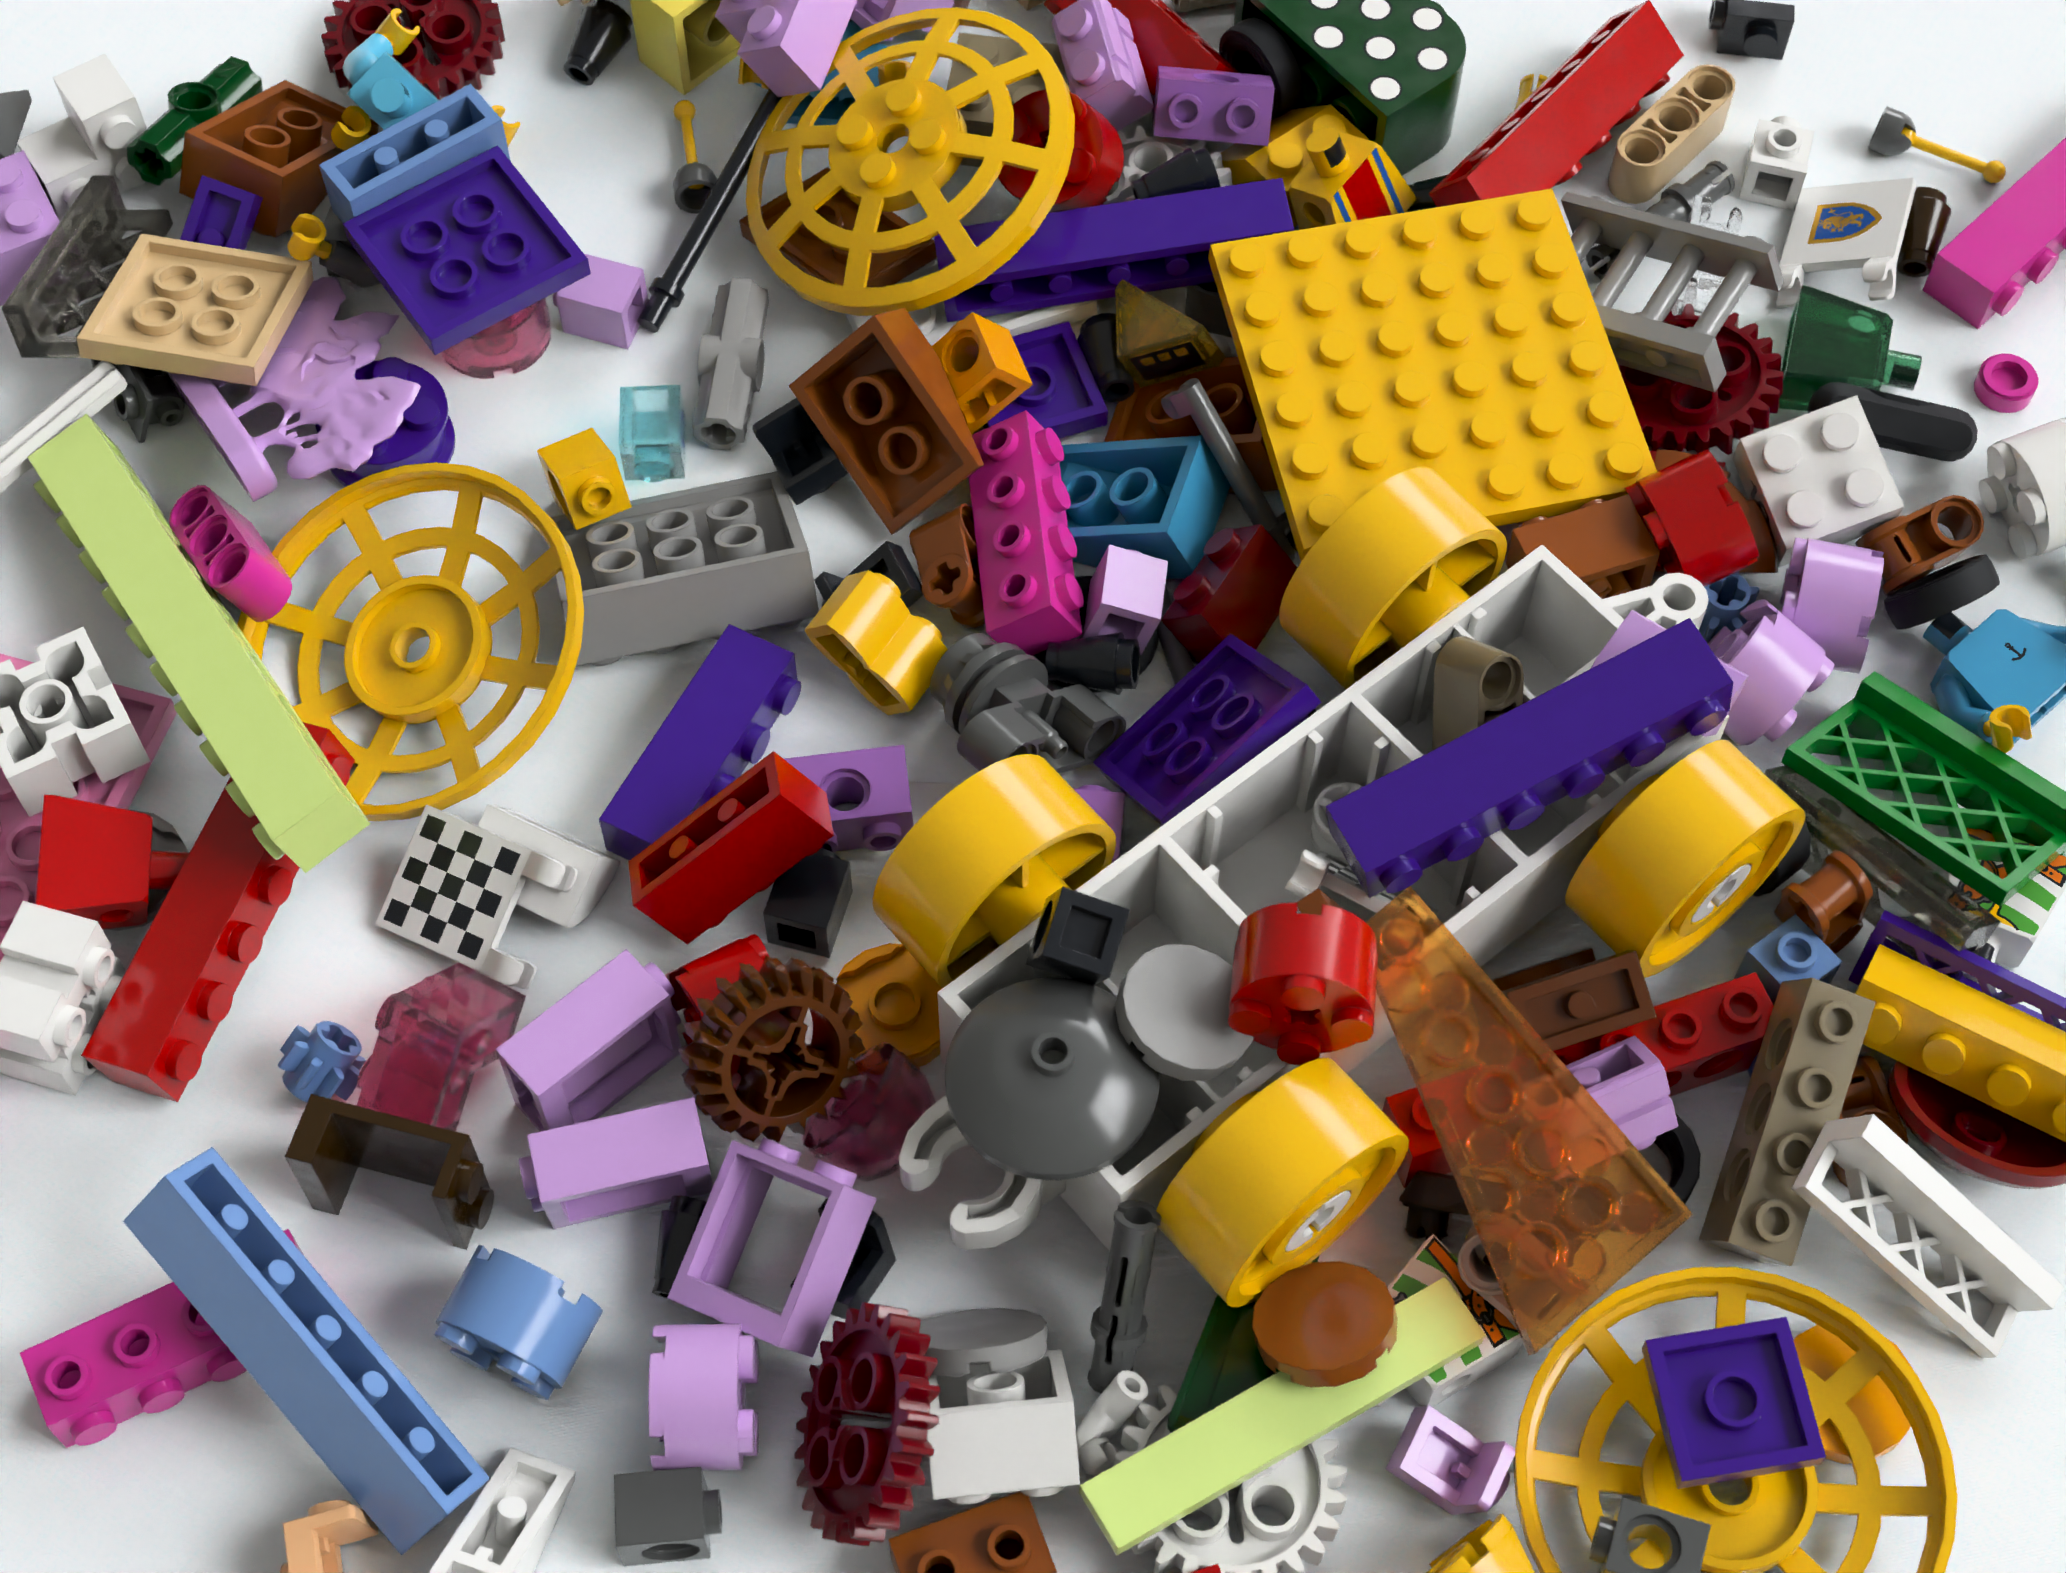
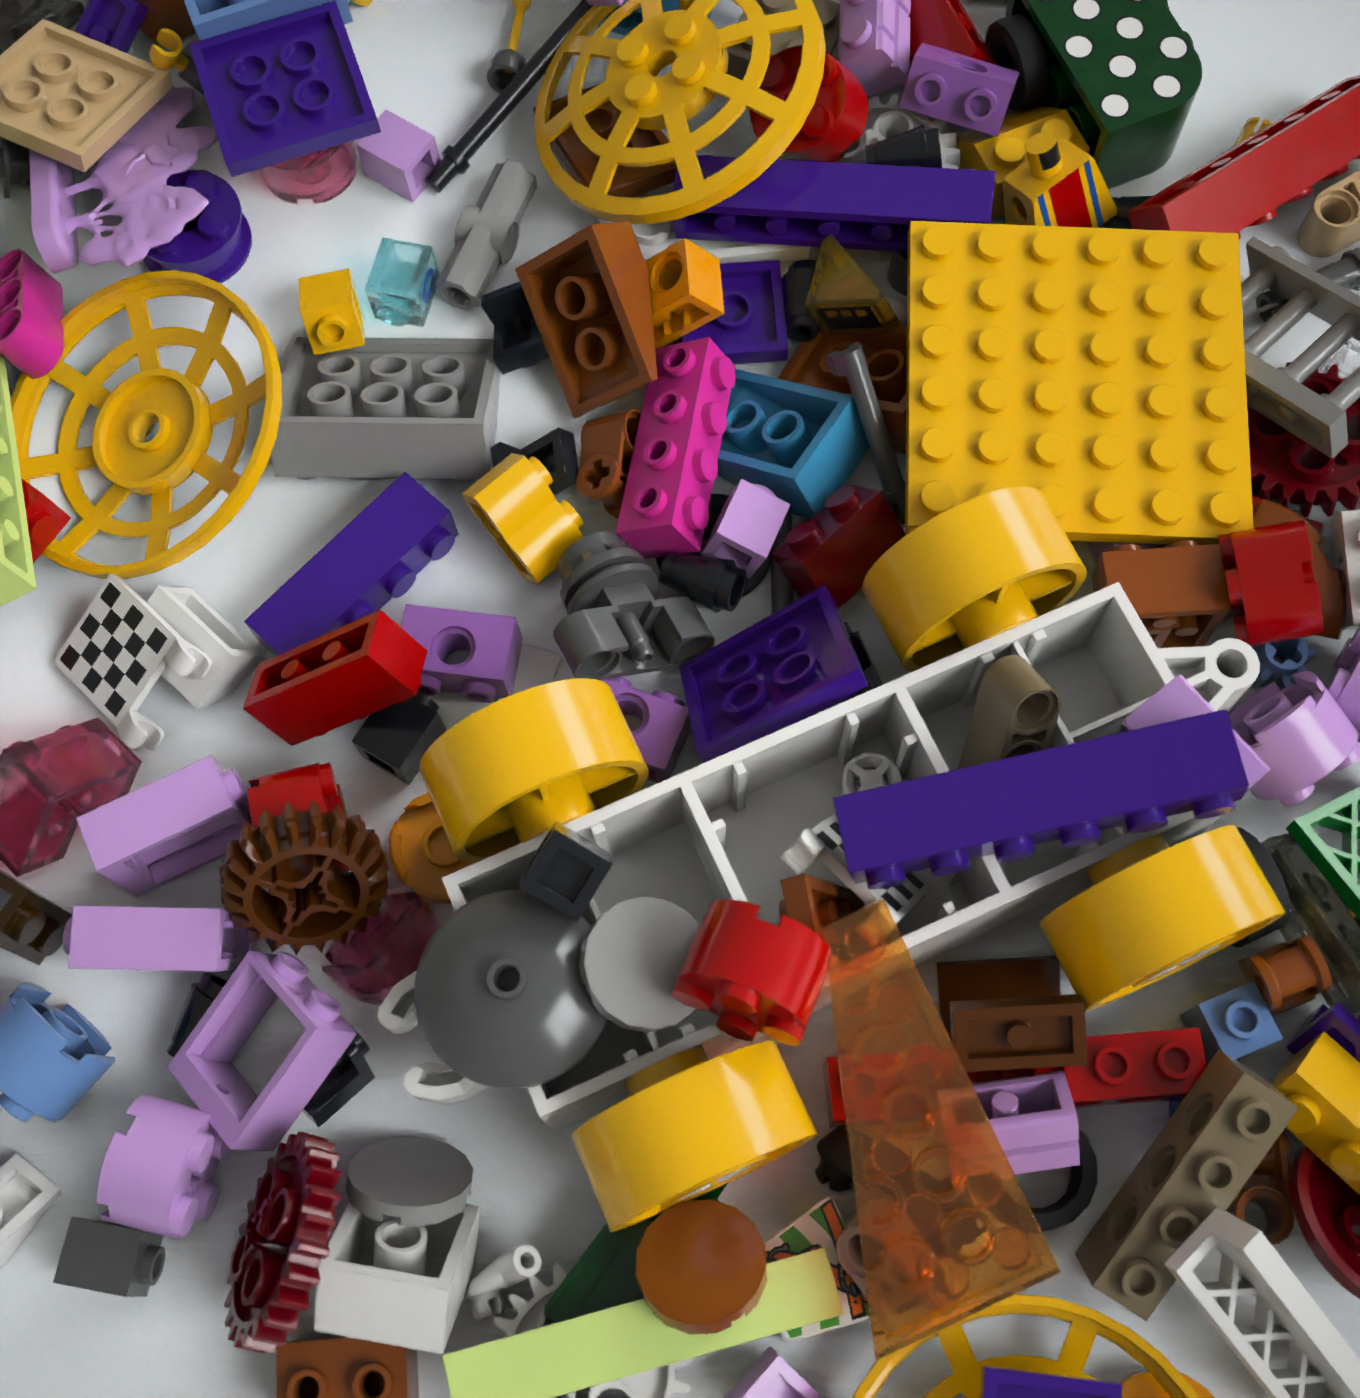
camera: 20 degrees right, 10 degrees up
(1119, 1321) = (532, 1199): dark grey pin -> none

